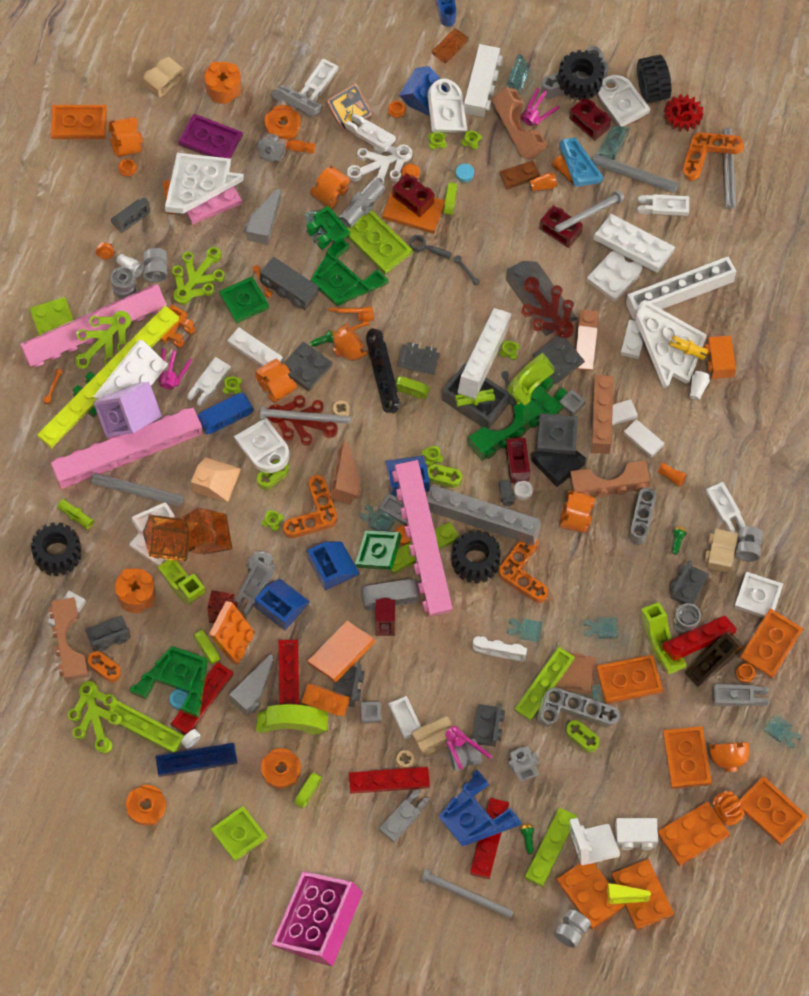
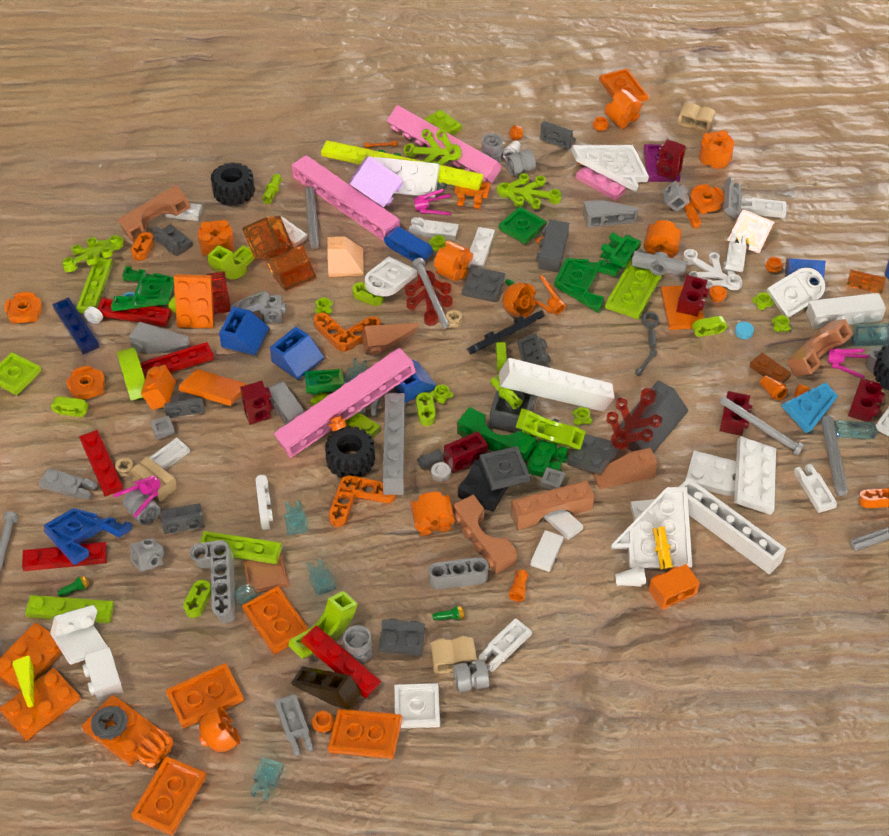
camera: 70 degrees right, 15 degrees down
(230, 129) = (670, 159): none -> dark red brick
(448, 553) = (337, 423): none -> orange plate
(691, 828) = (106, 715): none -> dark grey gear

